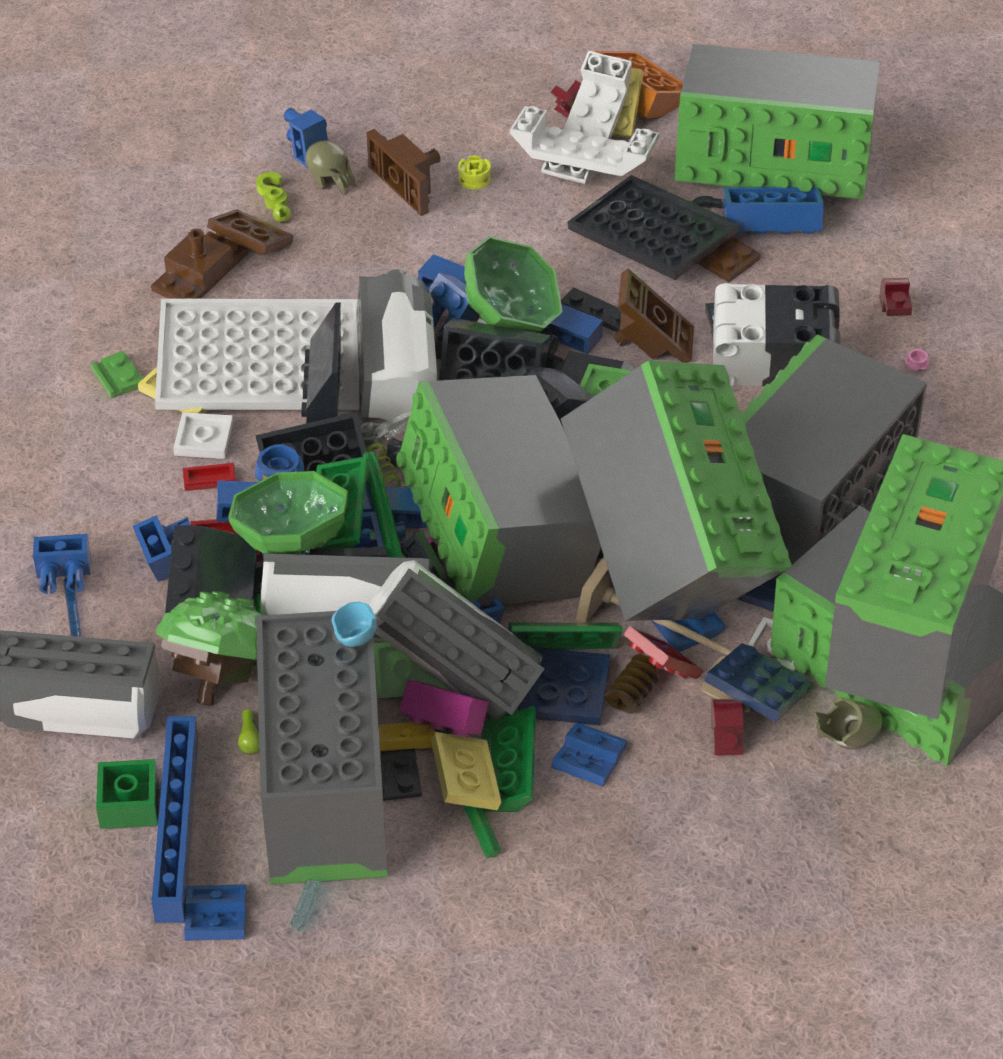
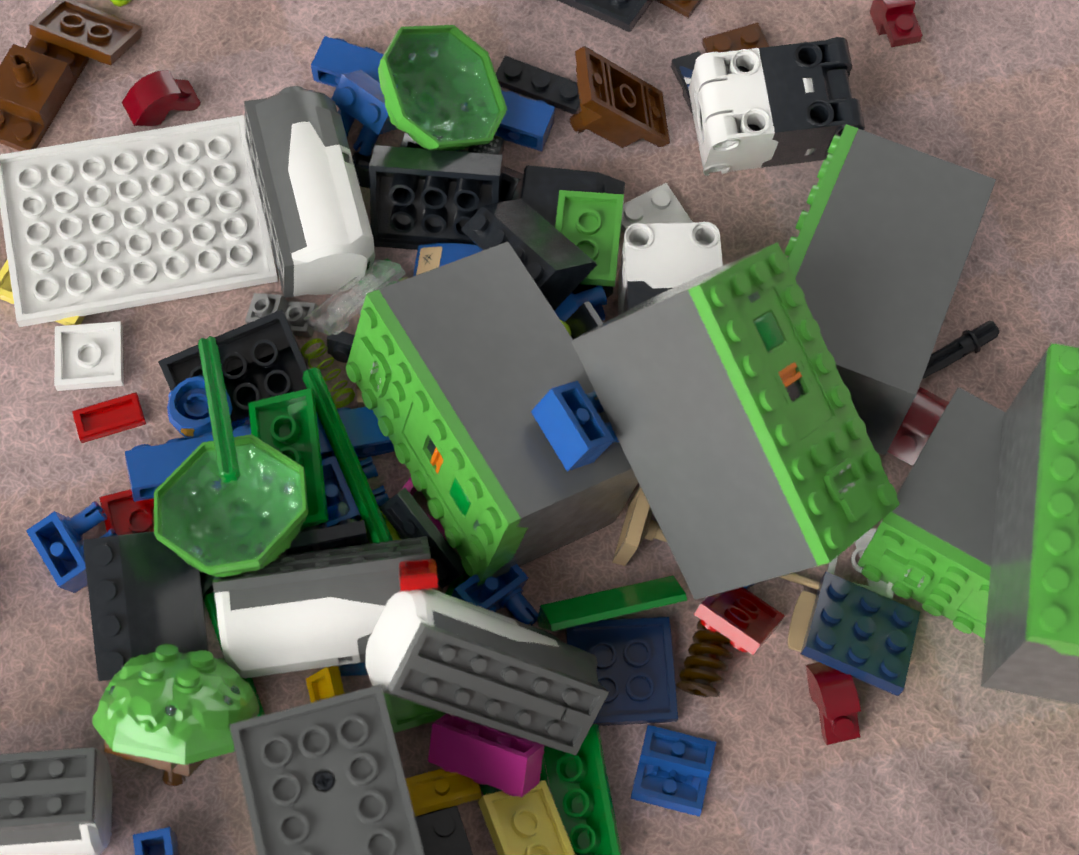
camera: 15 degrees left, 20 degrees up
(249, 736) = (240, 826): lime piece -> none
(293, 277) = (156, 95): none -> dark red brick
(293, 455) = (219, 410): none -> green axle
(323, 369) = (225, 250): black slope -> none
(354, 624) = (368, 730): medium azure hair -> none
(419, 555) = (418, 575): none -> red tile
(553, 478) = (573, 424): none -> blue brick
(849, 723) = (965, 681): olive helmet -> none
(917, 360) = (938, 97): bright pink plate -> none

